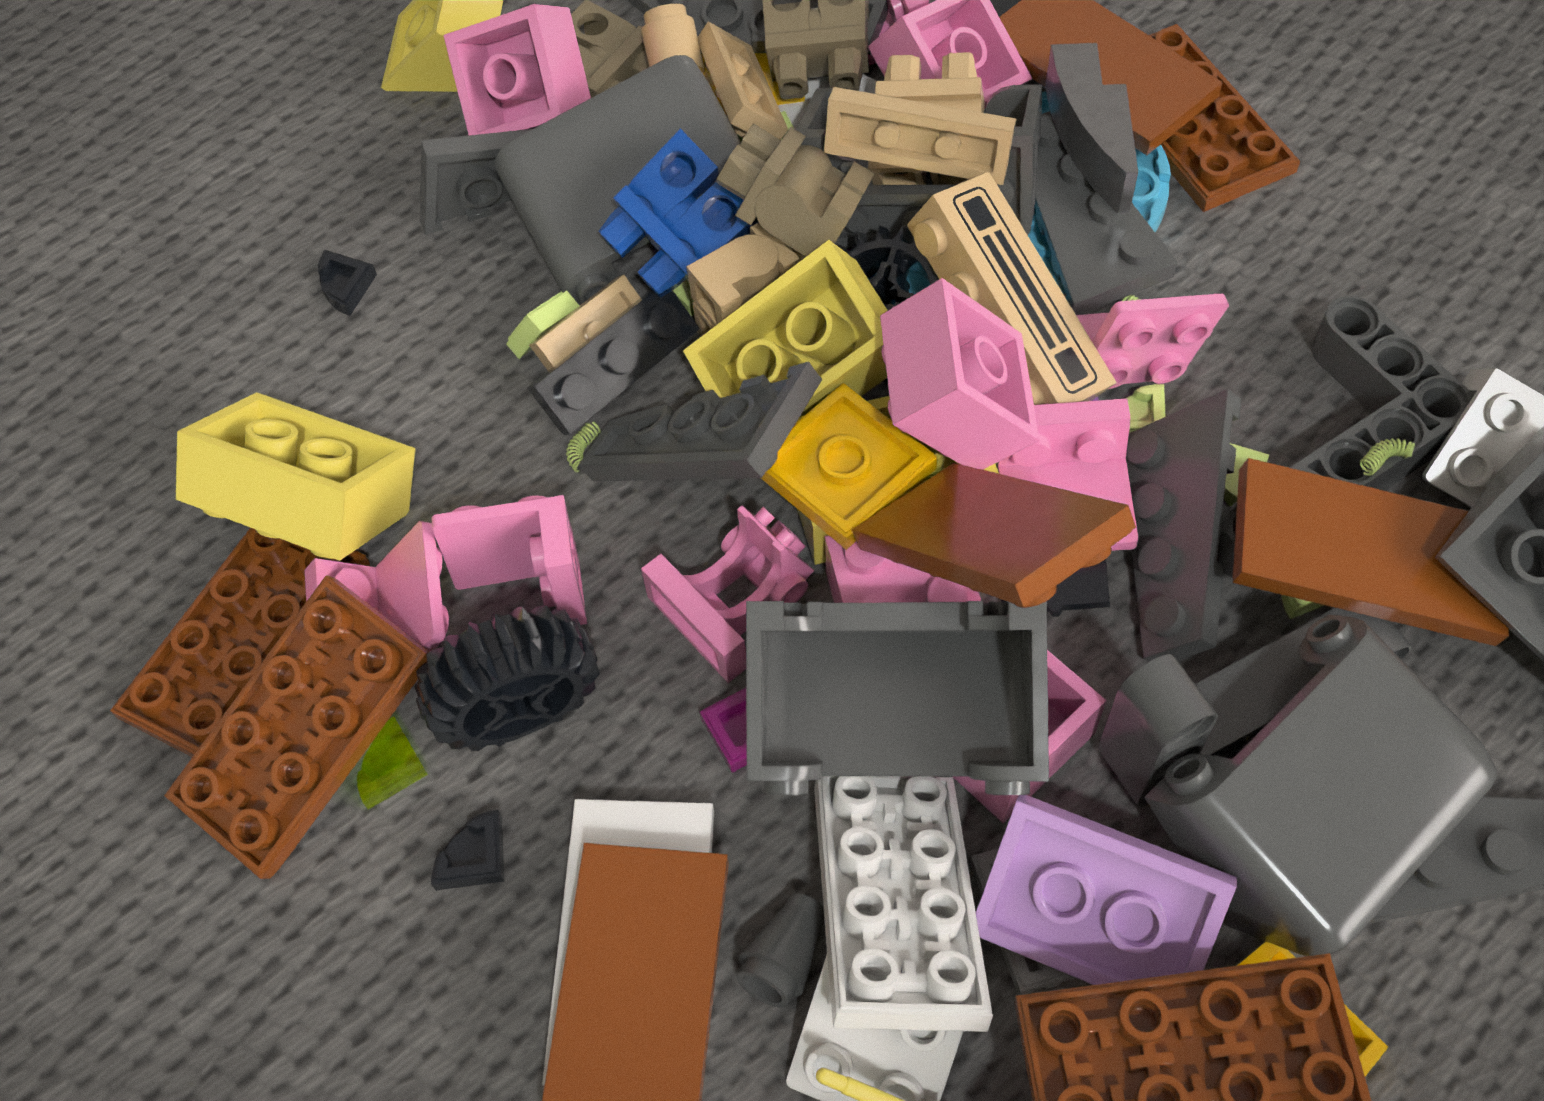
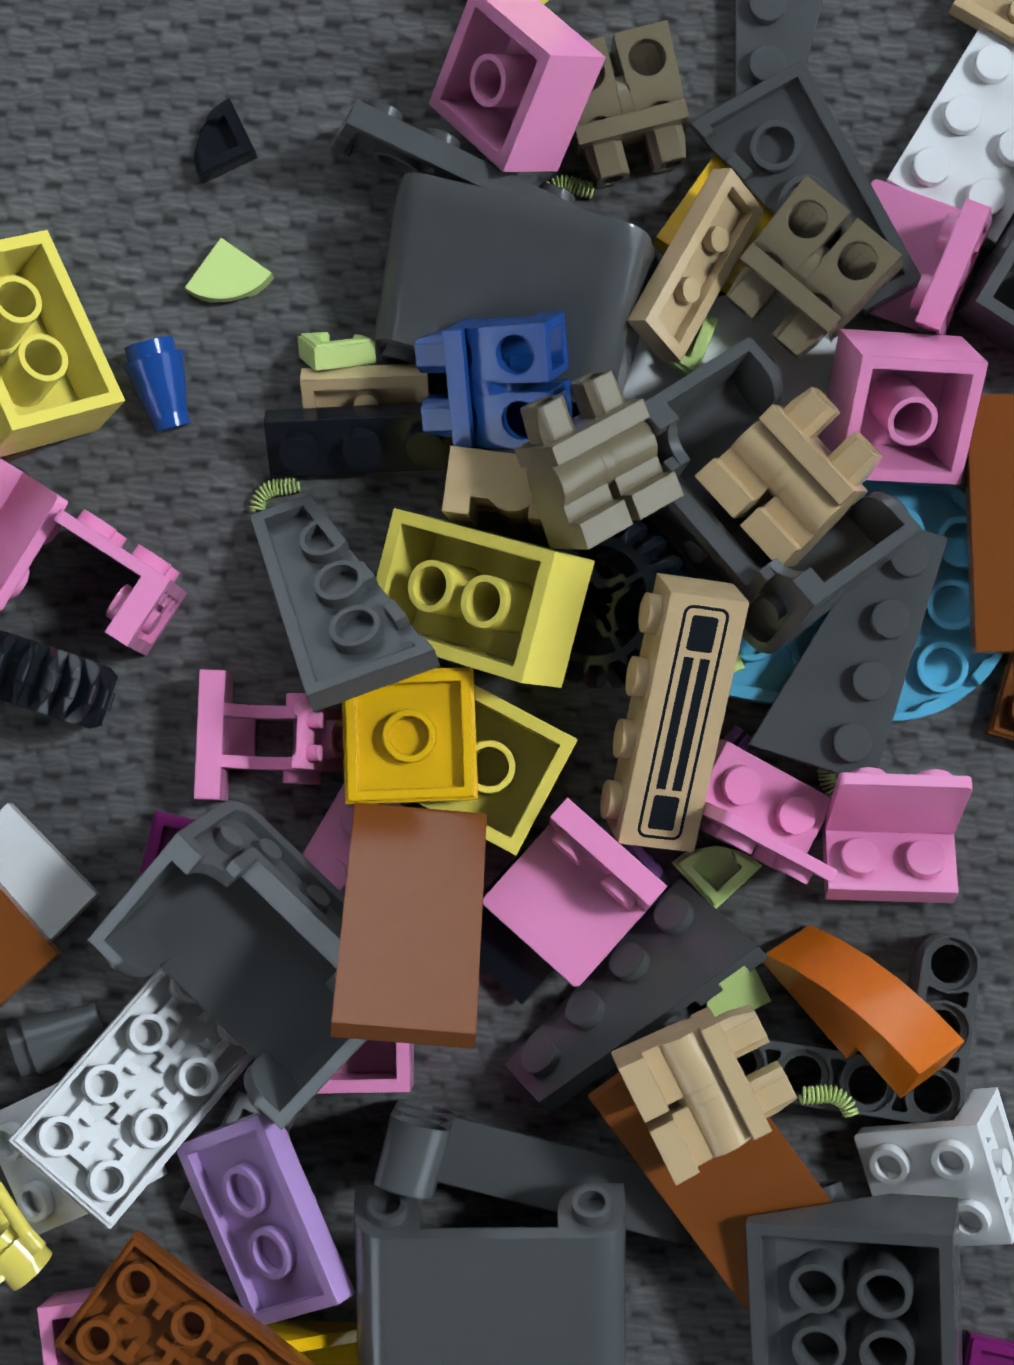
camera: 45 degrees right, 25 degrees up
(420, 345) = (228, 276): none -> yellowish green tile
(430, 434) = (159, 380): none -> blue cone
(670, 33) = (680, 161): tan brick -> none
(918, 135) = (724, 516): tan plate -> none
(957, 377) = (534, 767): bright pink brick -> none
(1093, 122) = (932, 599): flat silver slope -> none
(1218, 256) = (894, 835): none -> bright pink bracket
(1308, 484) = (696, 1090): none -> tan hips
(1335, 380) = (864, 1008): none -> orange slope

